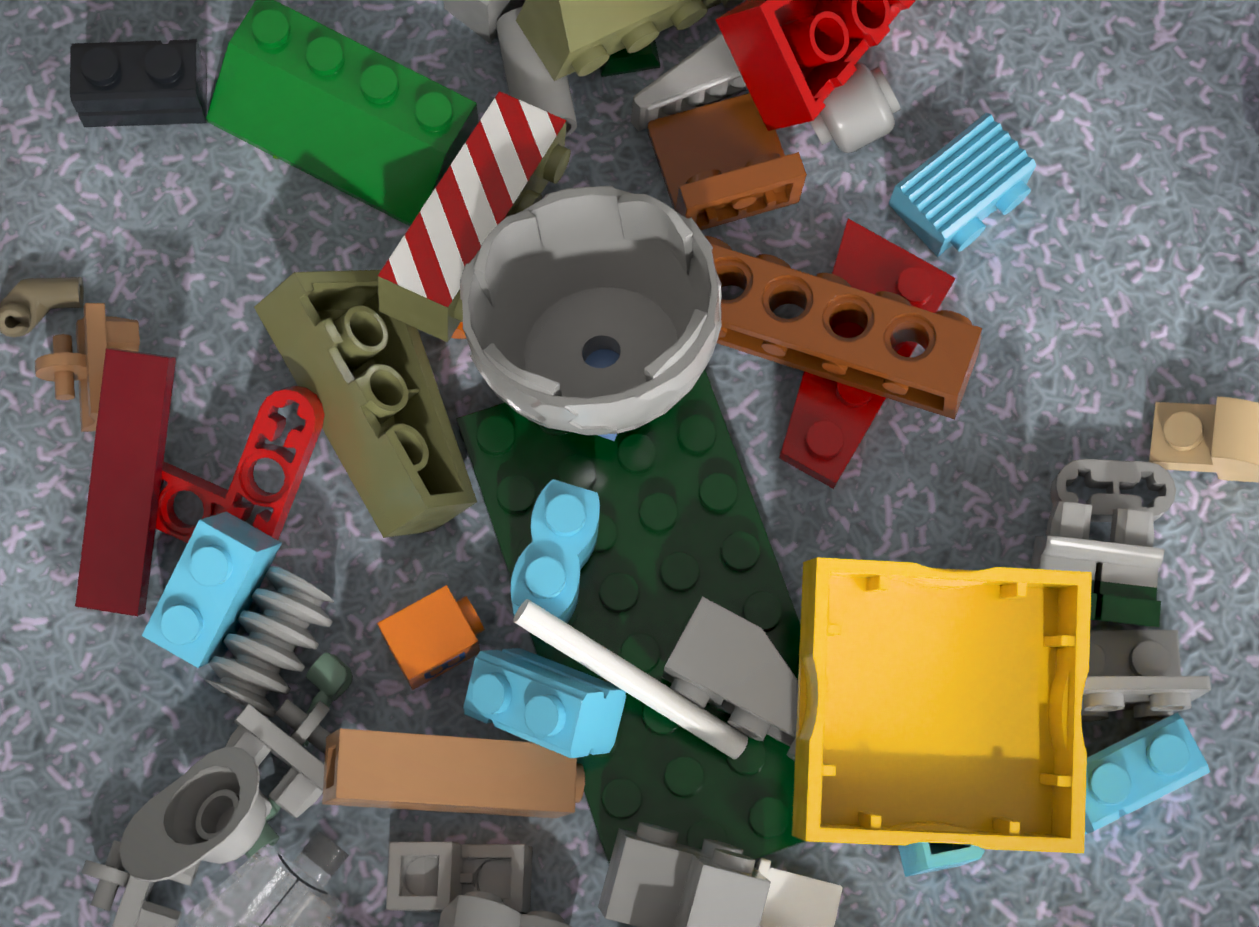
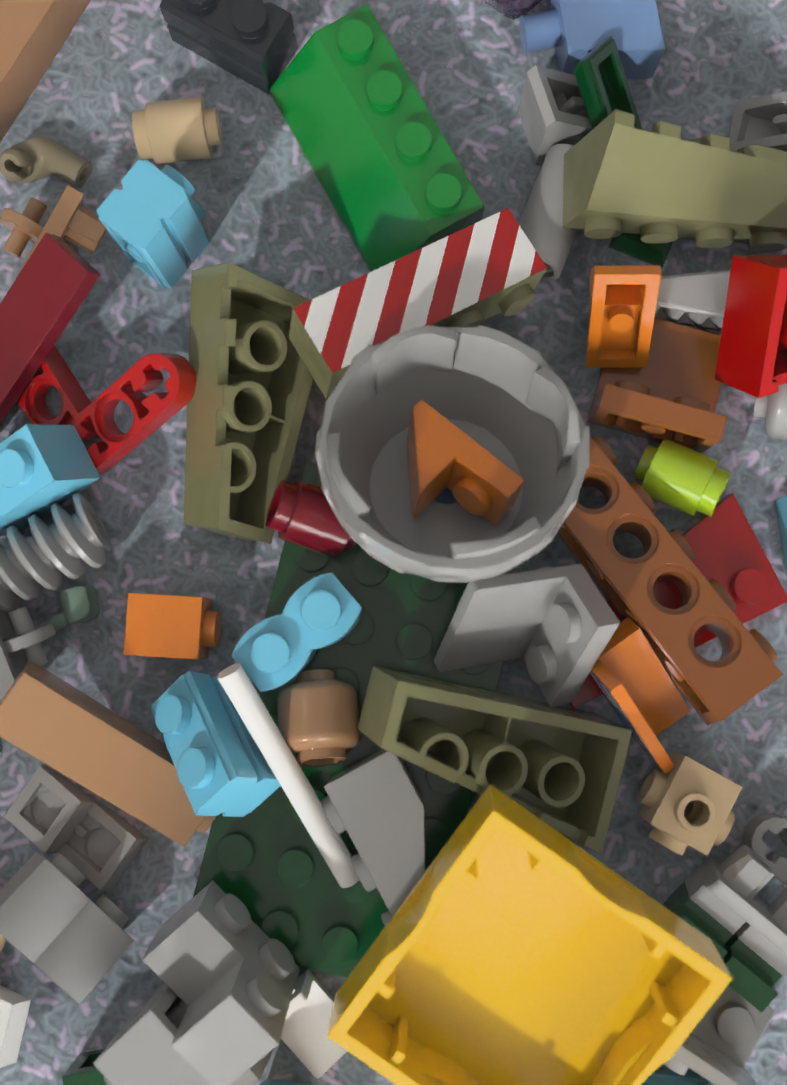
camera: 45 degrees right, 10 degrees up
(148, 201) = (176, 130): none -> tan brick
(191, 288) = (155, 221): none -> medium azure brick
(502, 451) = (306, 518): none -> dark red brick
(589, 320) = (447, 457): none -> orange slope
(623, 617) = (319, 718): none -> medium nougat head
(654, 124) = (621, 315): none -> orange slope
(752, 416) = (538, 615): none -> light grey bracket
(760, 541) = (543, 757): none -> olive wedge
(796, 229) = (682, 477): none -> lime brick
(875, 427) = (639, 689): none -> orange panel
(983, 498) = (708, 803): none -> tan brick

